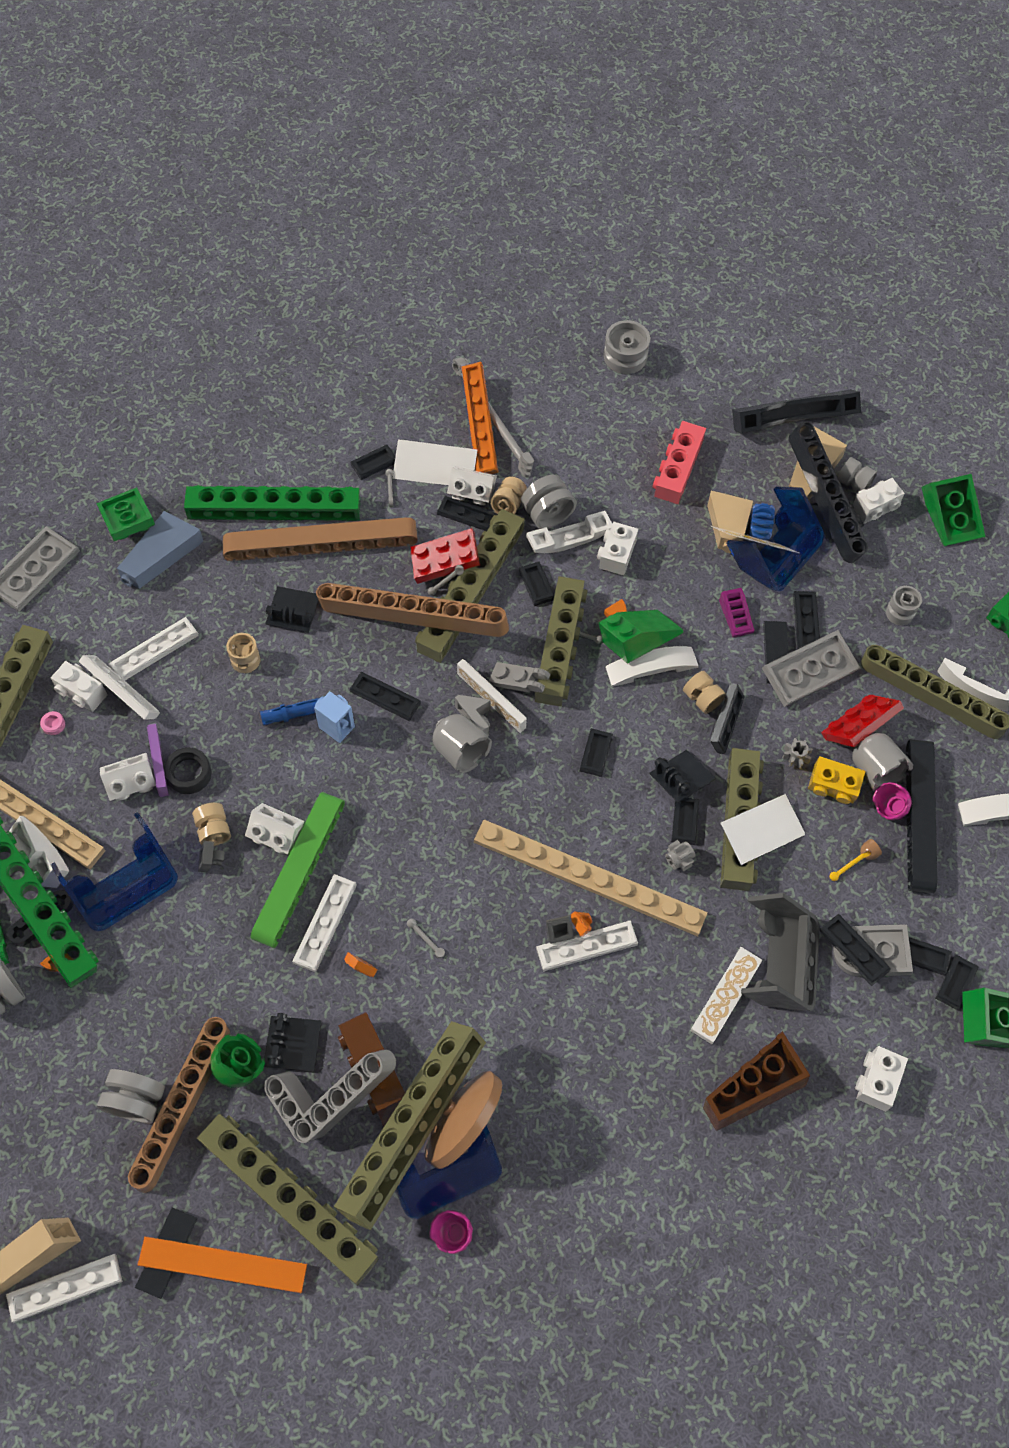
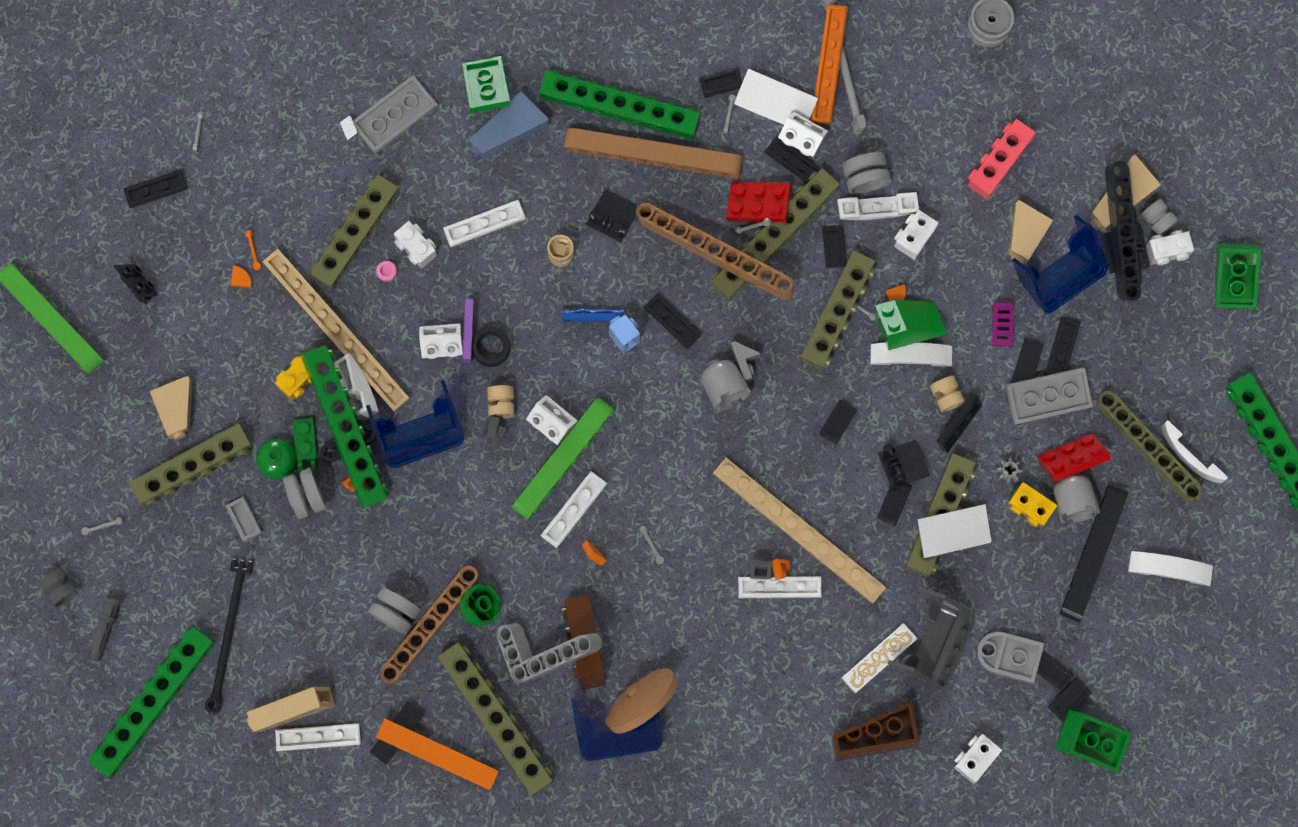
camera: 15 degrees right, 15 degrees up
(119, 686) = (449, 254): white tile -> none
(292, 1043) = (525, 601): black hinge -> none
(410, 1125) = (602, 693): olive brick -> none
(451, 1224) = (617, 776): dark pink hair -> none
(487, 691) = (763, 347): white tile -> none
(508, 495) = (833, 155): tan wheel -> none
(518, 677) = (789, 337): light grey hinge -> none
(680, 855) = (879, 534): light grey gear -> none
(754, 539) = (1037, 264): white sticker -> none
(762, 521) = (1054, 242): blue gear -> none
(810, 407) = (1164, 135): black arch -> none
(855, 949) = (994, 651): black tile -> none
(869, 850) = (1038, 573): hinge -> none
(892, 801) = (1072, 536): dark pink hair -> none
(903, 605) = (1152, 359): light grey wheel -> none

